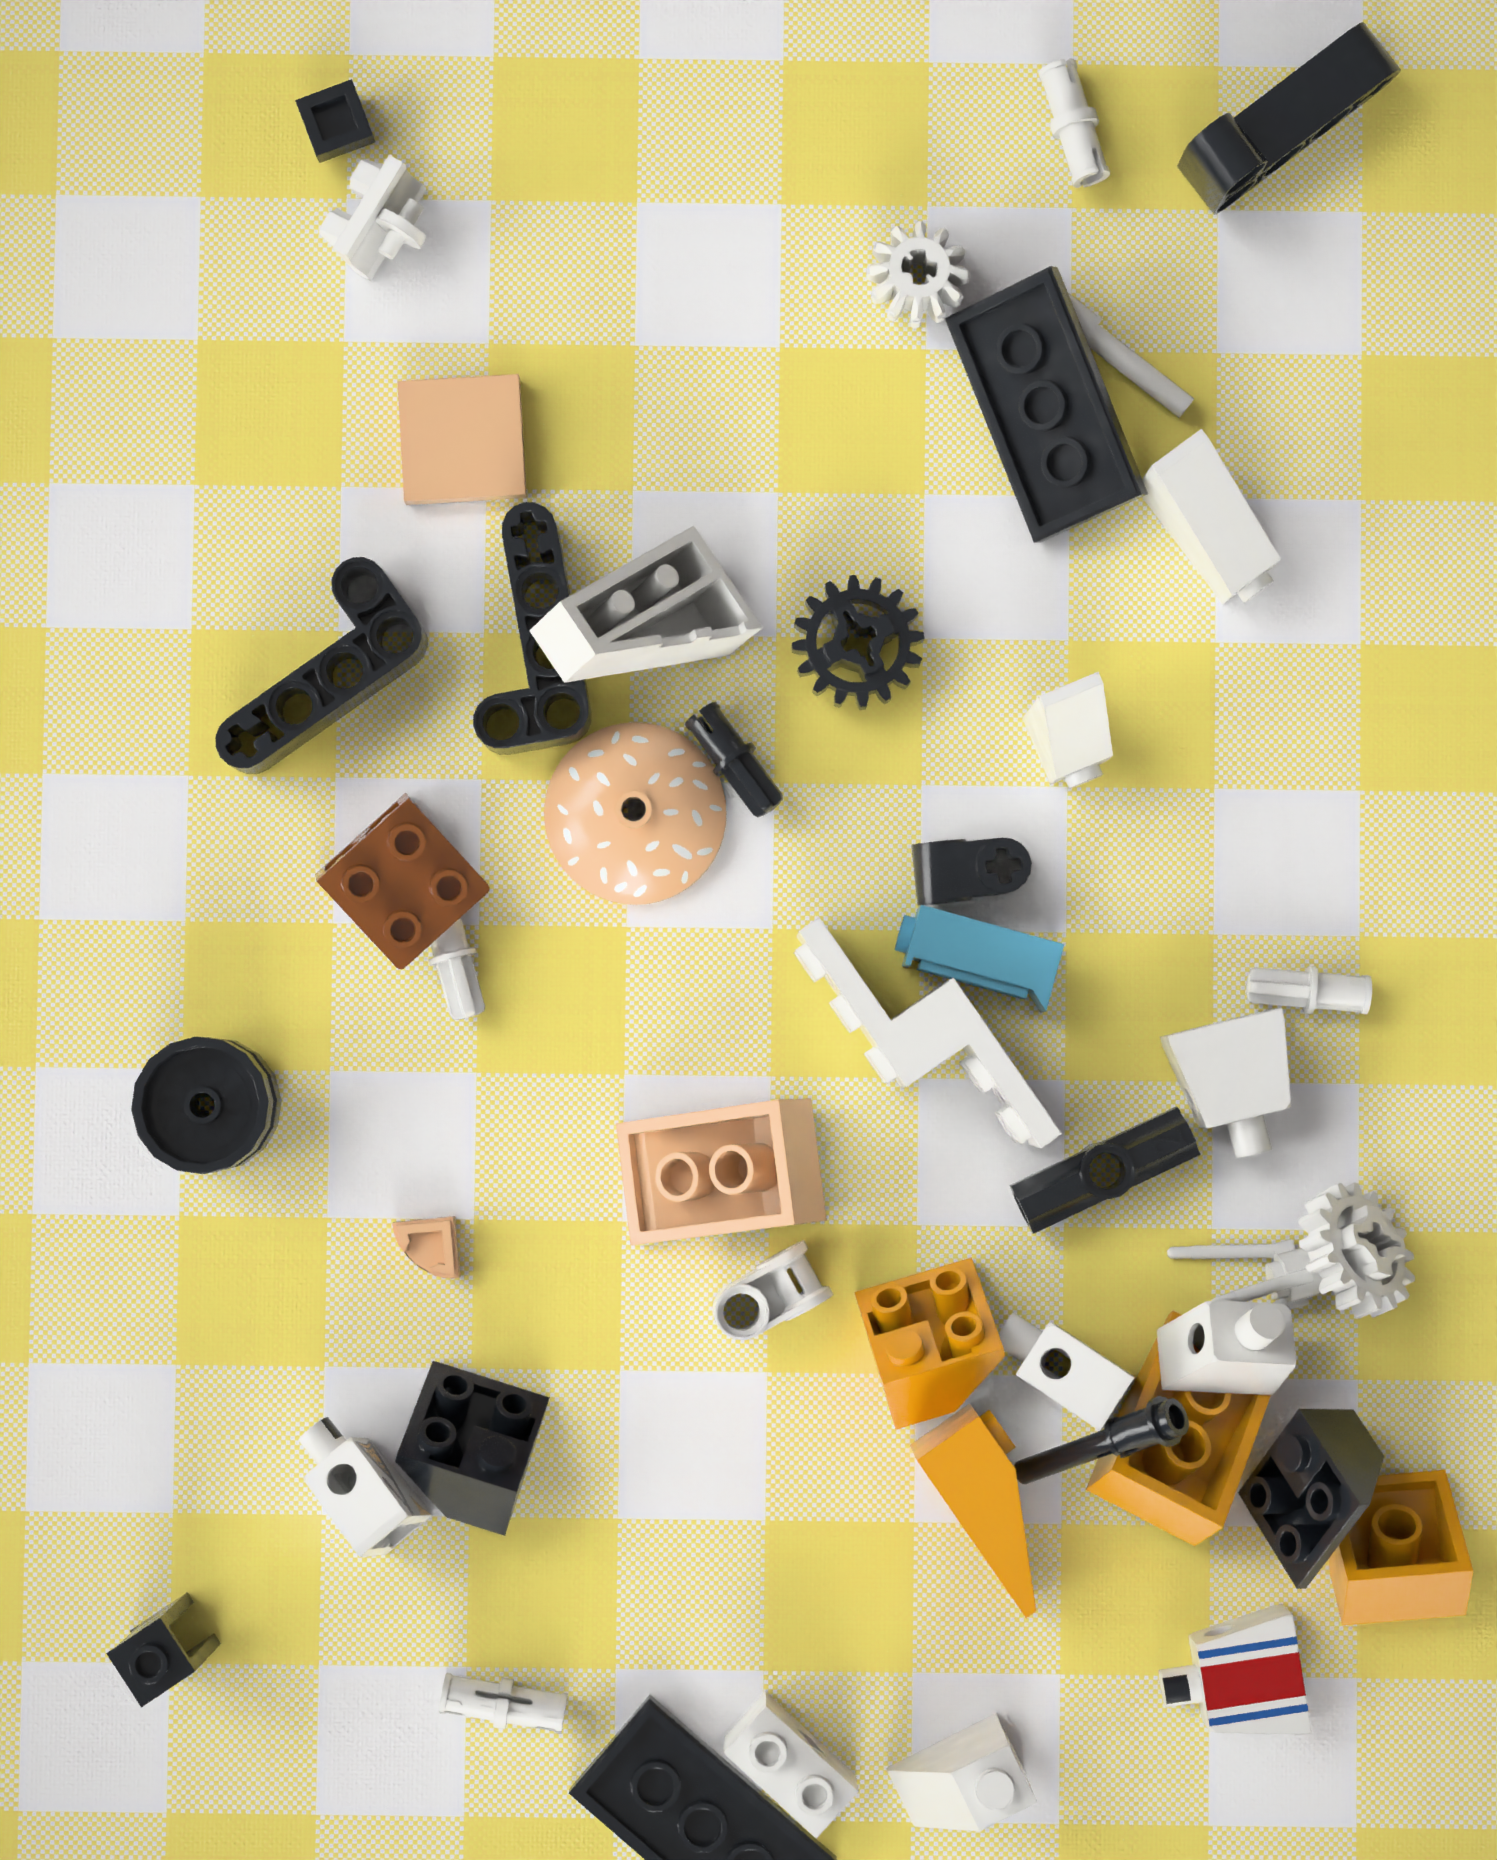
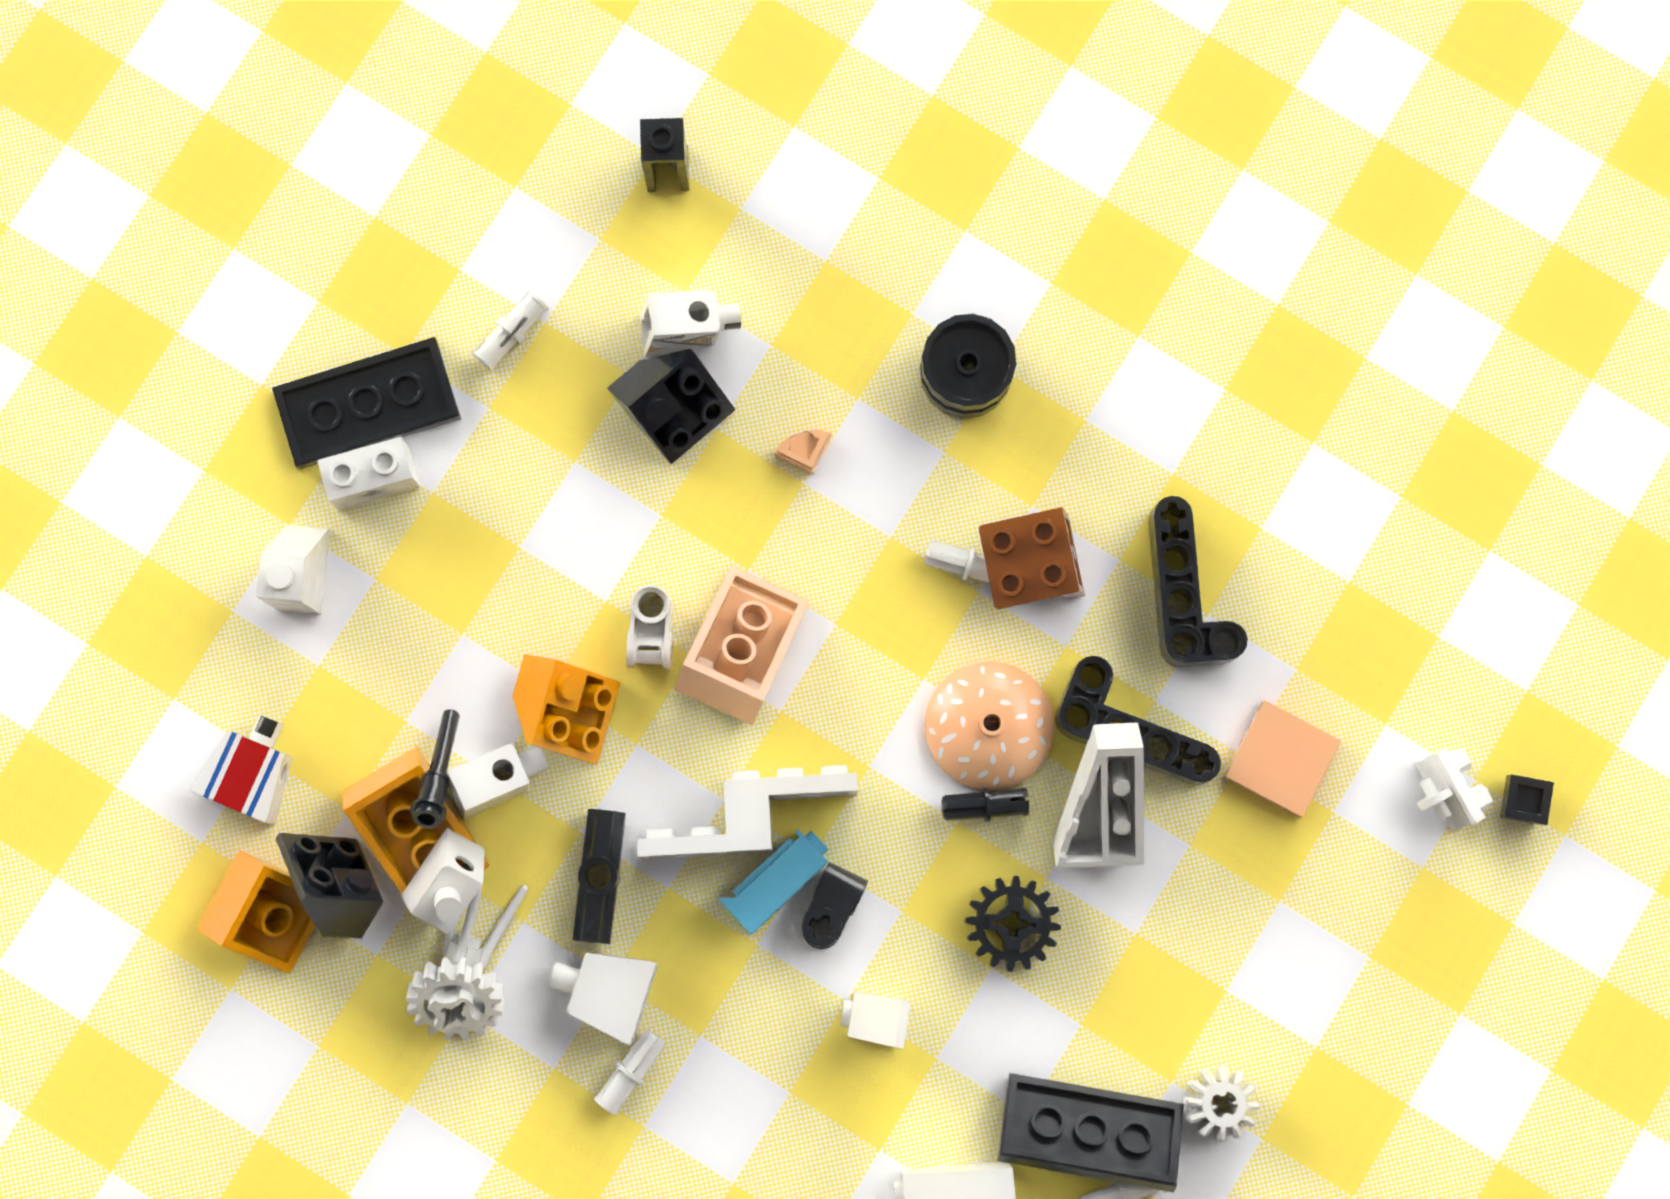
camera: 120 degrees right, 5 degrees down
(980, 1486) = (465, 680): light orange slope -> none

